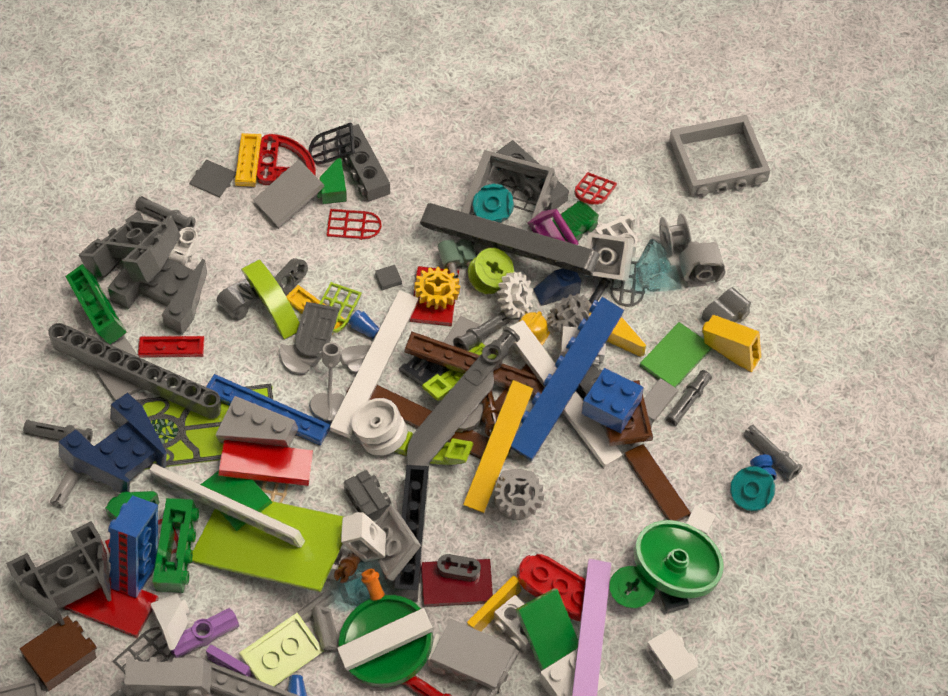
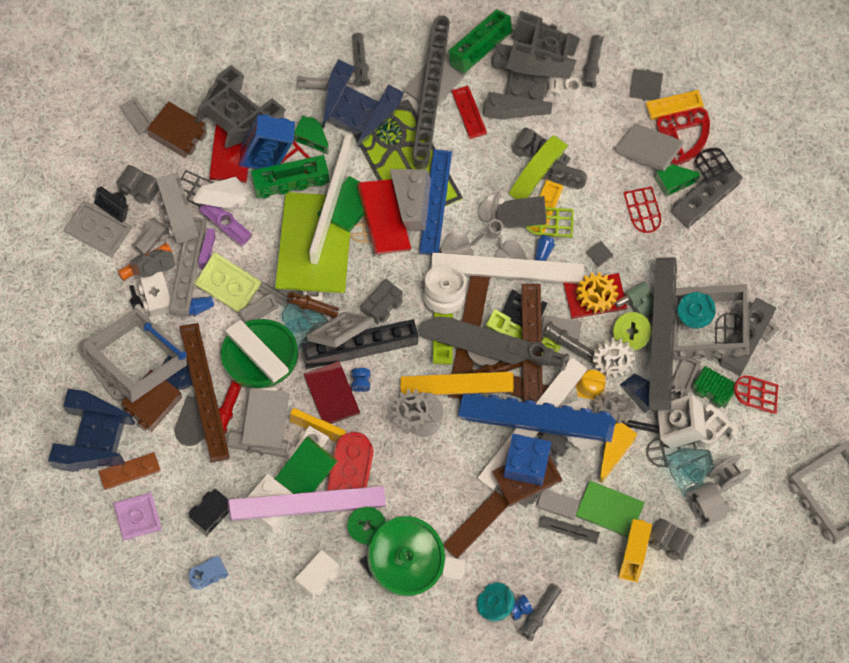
camera: 70 degrees right, 10 degrees up
(363, 537) = (332, 304): white brick -> none
(371, 580) = (301, 323): orange pin -> none
(452, 545) = (360, 380): none -> blue wheel
(458, 567) = (337, 389): dark grey beam -> none
(543, 225) = (685, 366): magenta tile -> none

